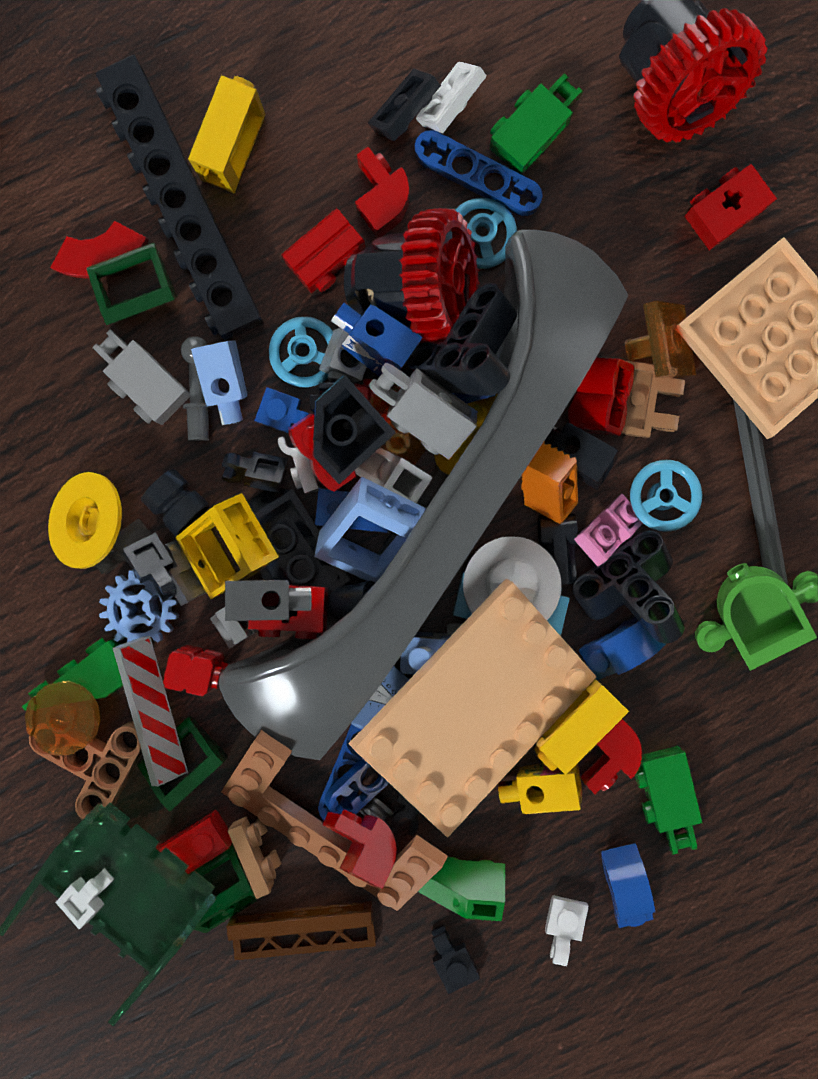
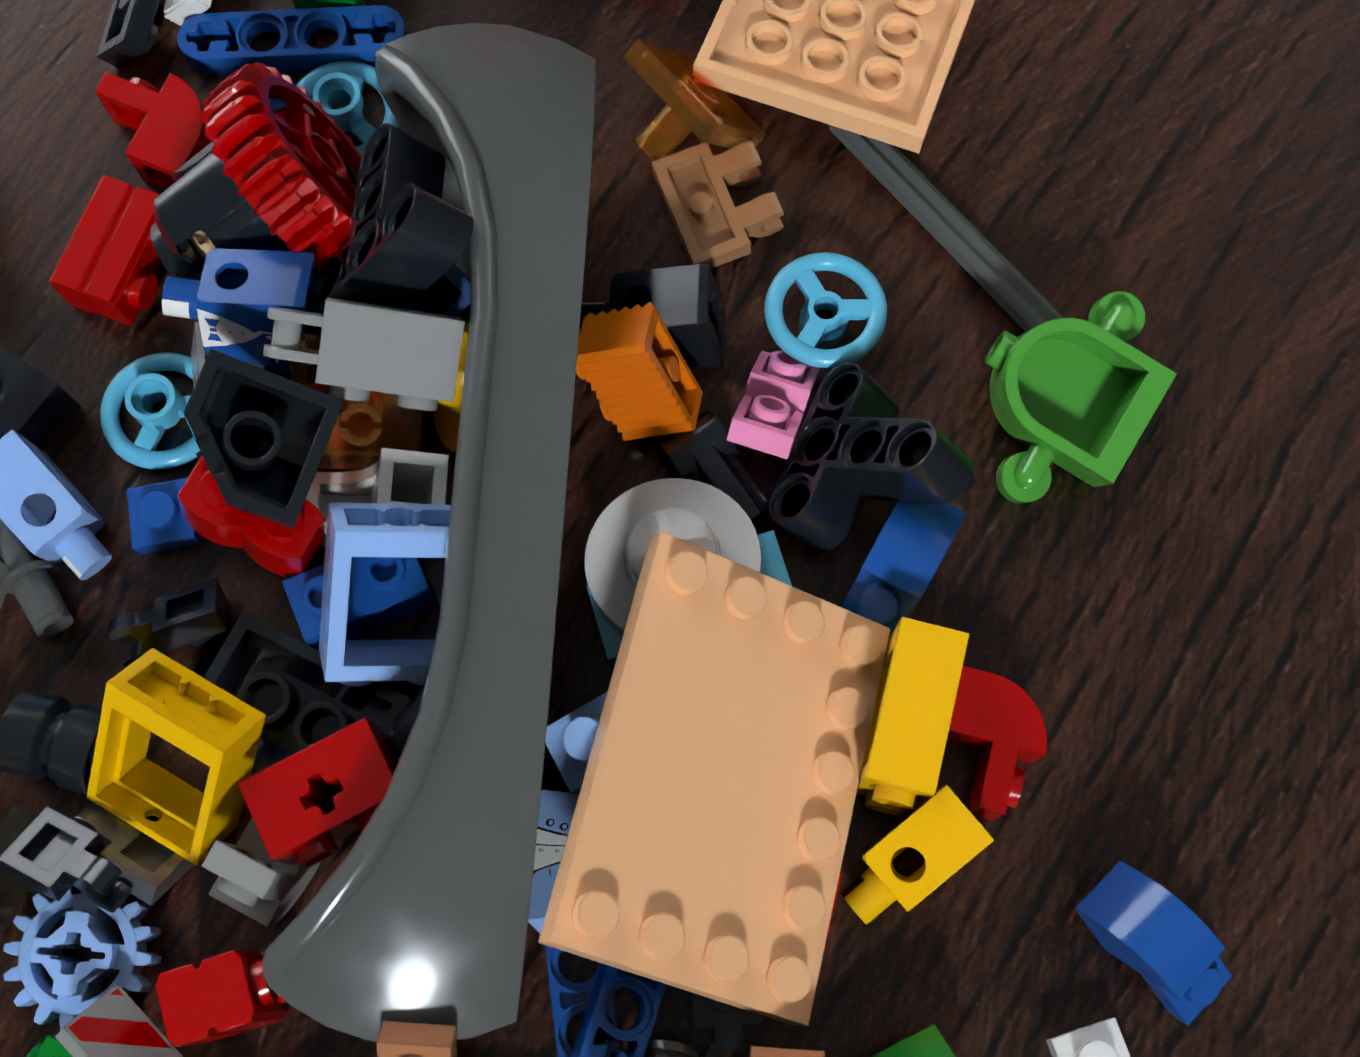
camera: 30 degrees left, 15 degrees down
(244, 600) = (232, 790): dark grey torso -> none
(302, 473) = (251, 582): white plate -> none
(603, 397) = (643, 216): red brick -> none
(669, 796) = (1126, 755): green brick -> none

